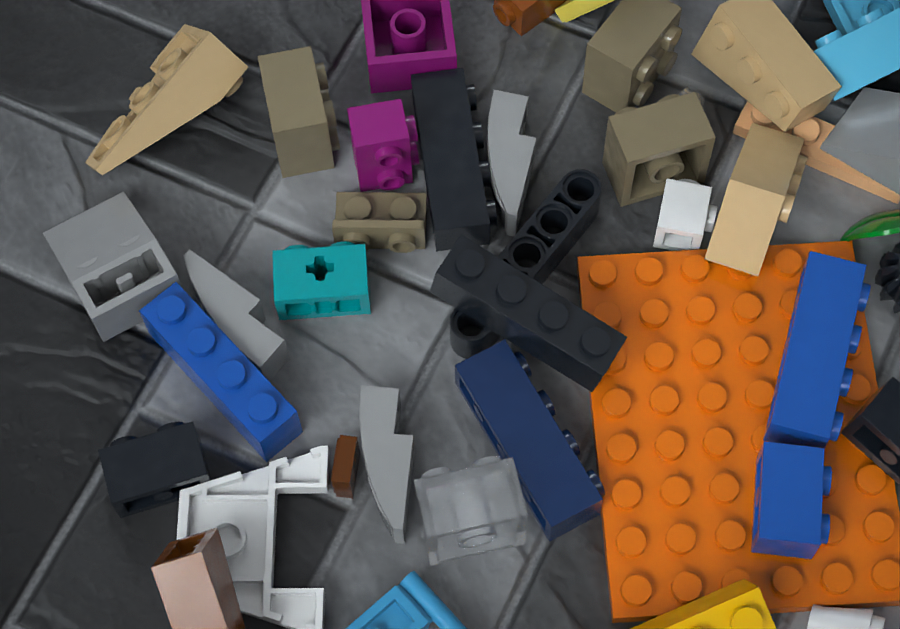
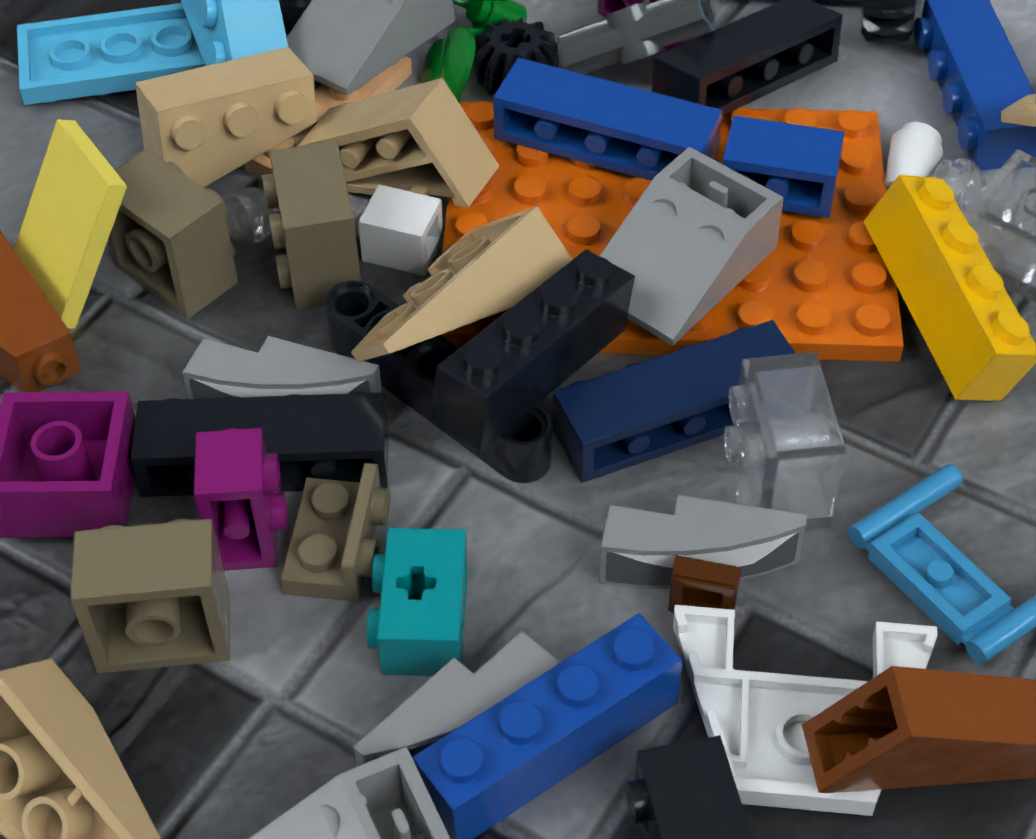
camera: 85 degrees left, 15 degrees down
(605, 277) = (470, 281): none -> tan wedge
(666, 421) = (692, 241): none -> light grey slope

